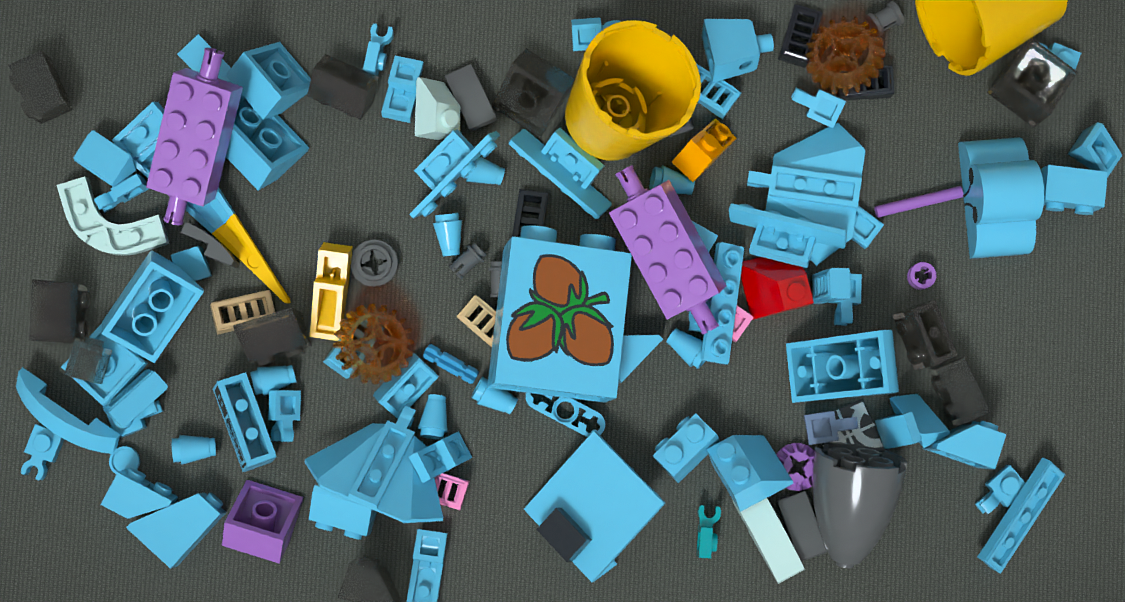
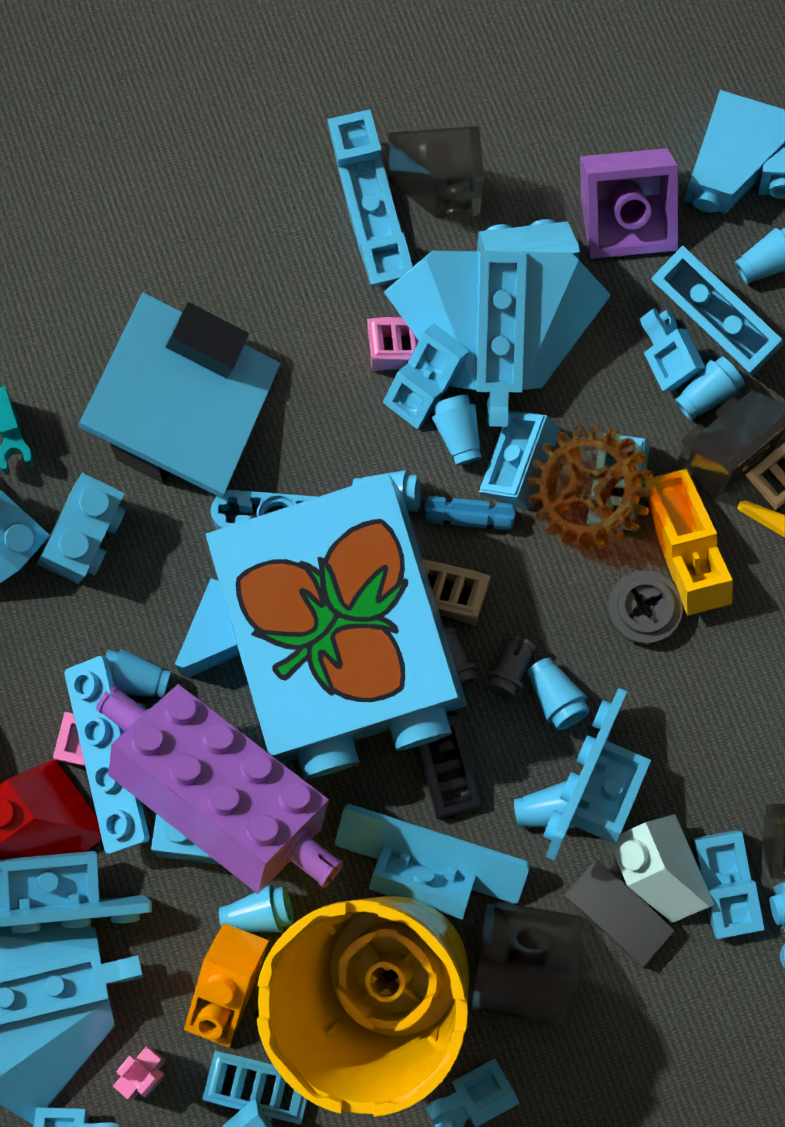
camera: 160 degrees right, 10 degrees down
(769, 119) = (140, 1074): none -> bright pink plate

